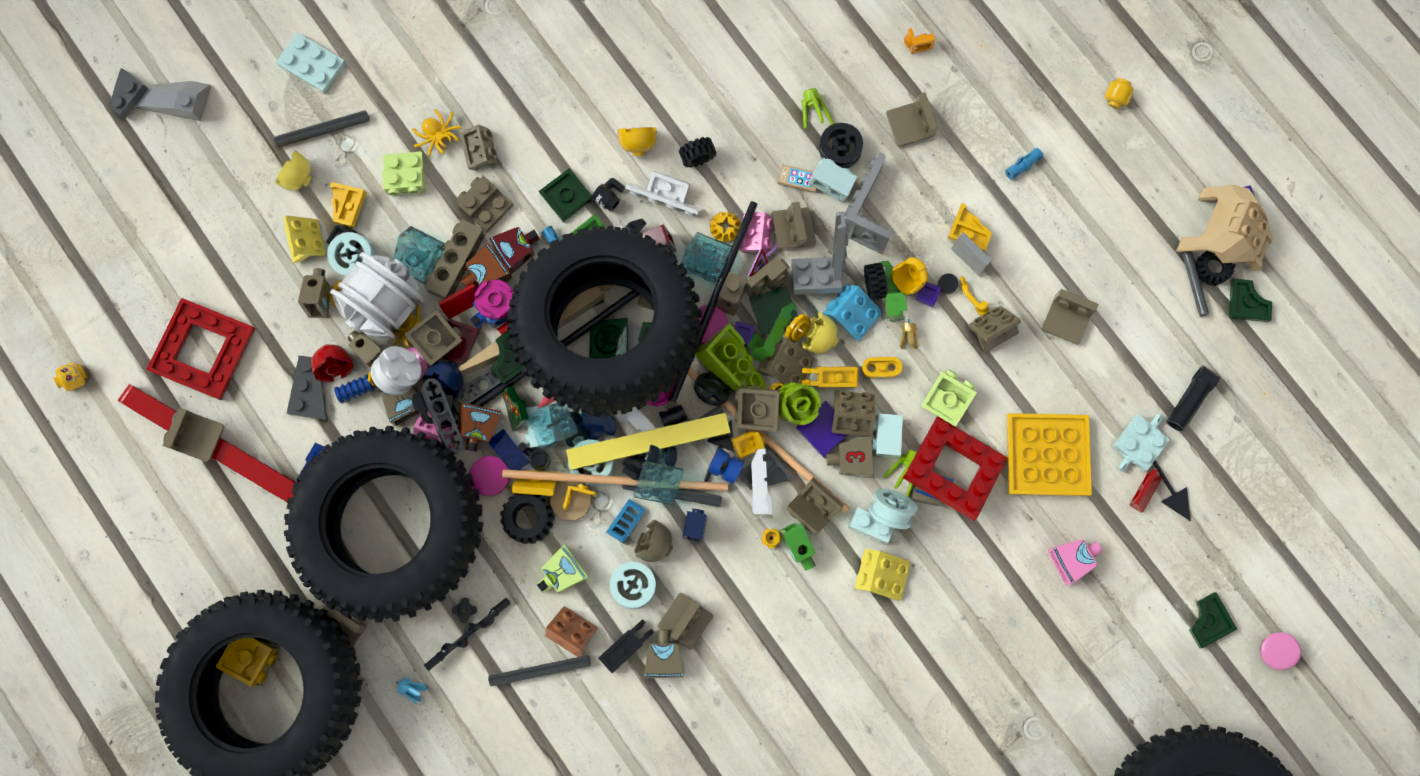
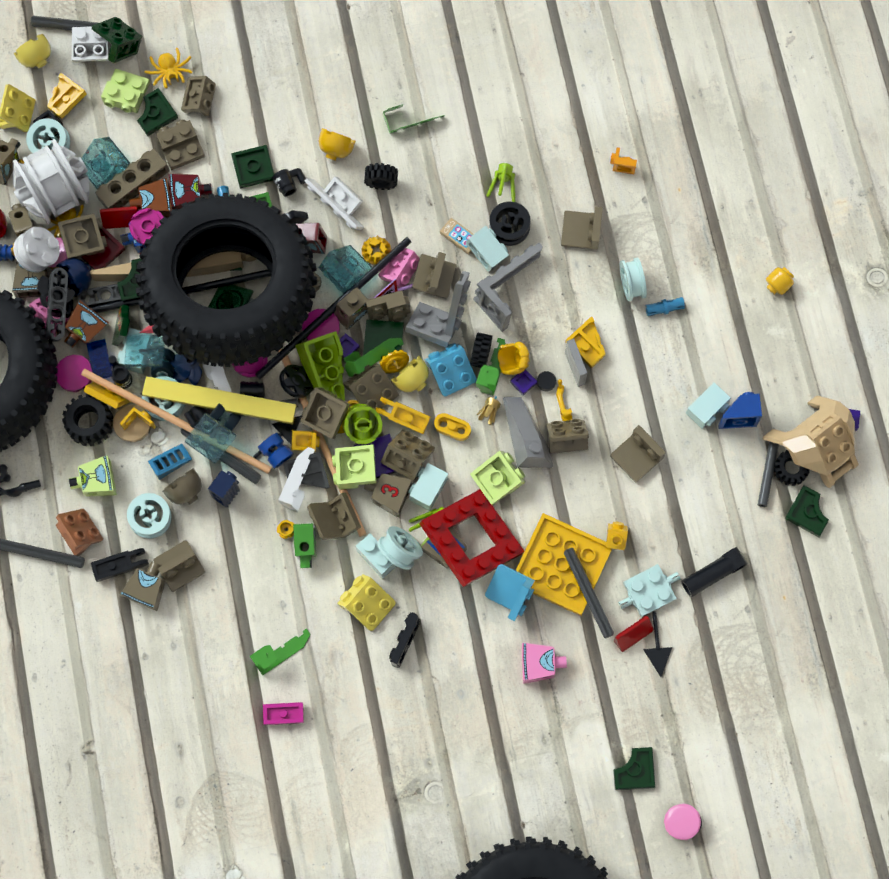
camera: 25 degrees right, 5 degrees down
(348, 140) = (89, 45): none -> white slope
(375, 120) = (123, 38): none -> dark green bracket
(446, 182) = (157, 113): none -> dark green tile
(676, 97) = (399, 106): none -> bright green piece
(810, 448) = (354, 466): none -> yellowish green plate
(819, 670) = (267, 658): none -> bright green piece
(856, 720) = (283, 713): none -> dark pink plate
(937, 594) = (405, 638): none -> black hinge
(958, 348) = (526, 438): none -> light grey wedge
(986, 150) = (633, 279): none -> light aqua wheel
(1017, 502) = (510, 590): none -> medium azure bracket
(1088, 403) = (616, 536): none -> yellow bracket
(1089, 471) = (588, 593): none -> dark grey axle
(1111, 241) = (708, 405): none -> light aqua brick
(1149, 232) = (743, 412): none -> blue slope

